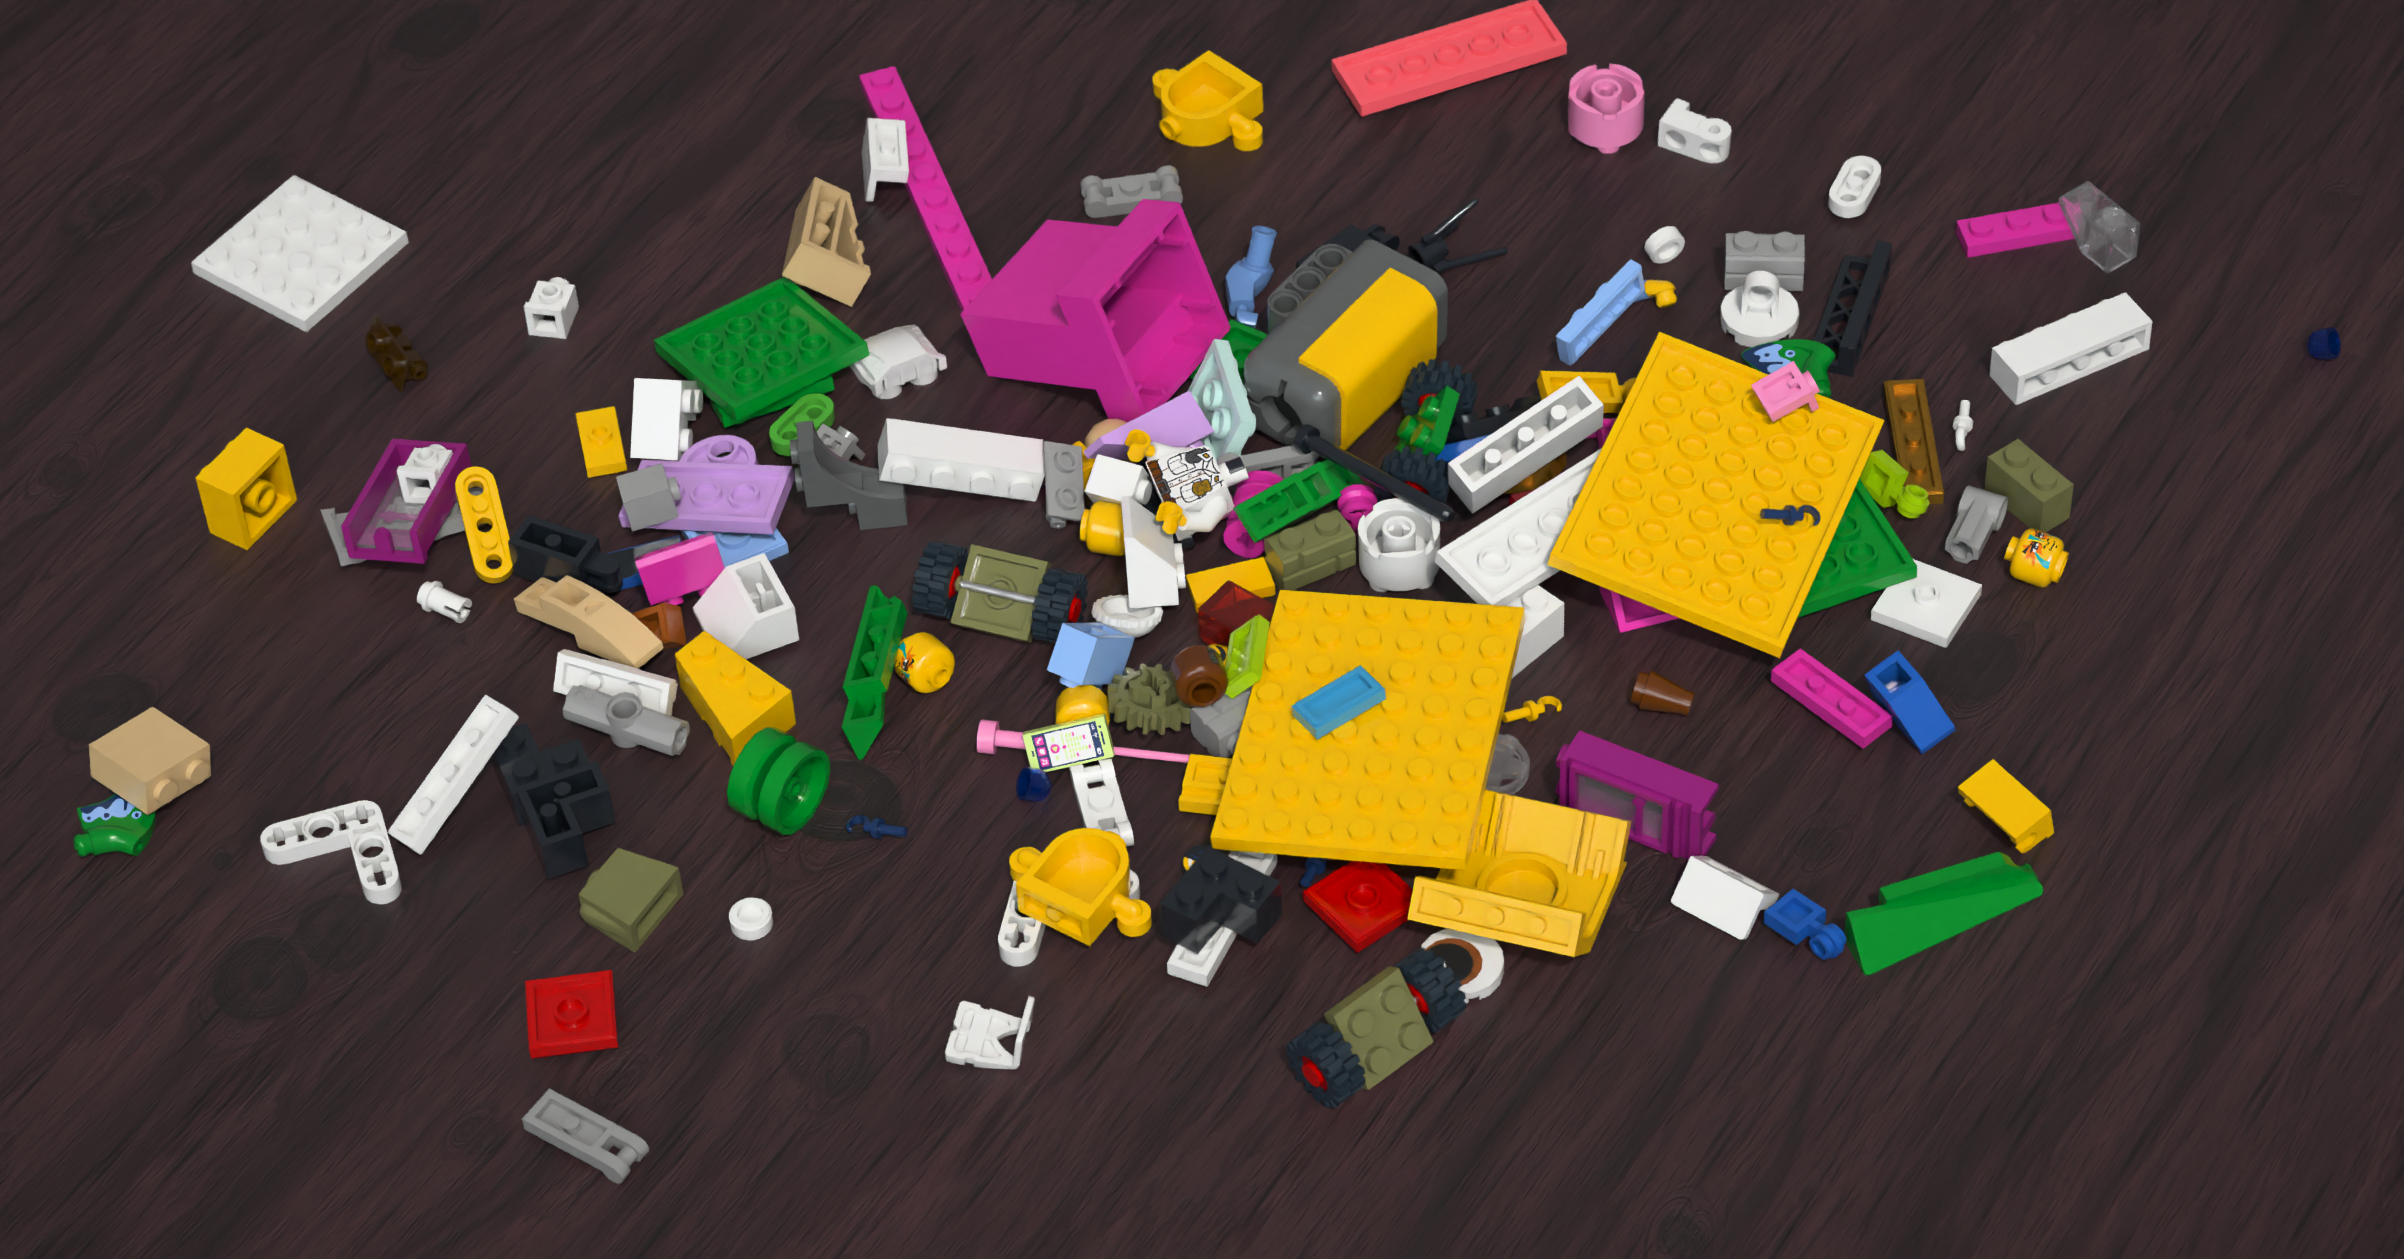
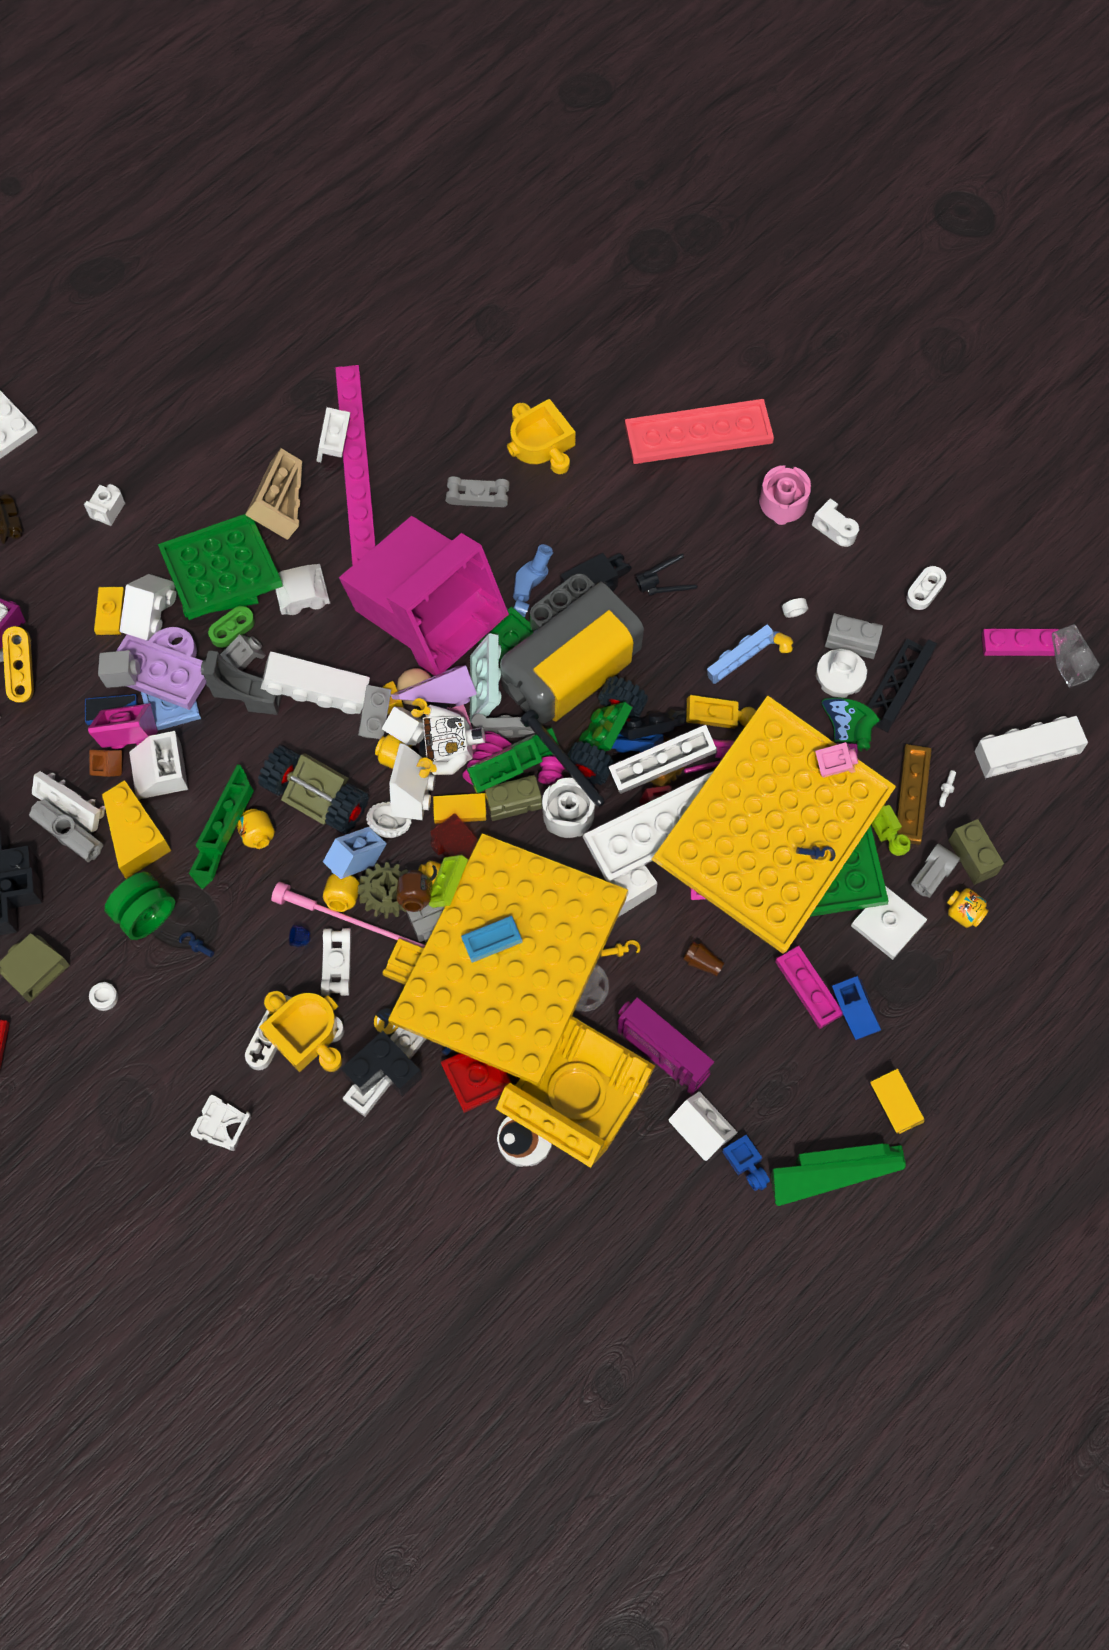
camera: 10 degrees right, 20 degrees up
(557, 551) = (58, 700): black brick -> none
(593, 618) = (63, 751): tan slope -> none
(1069, 743) = (326, 914): tile -> none
(1376, 1028) = (456, 1186): plate -> none

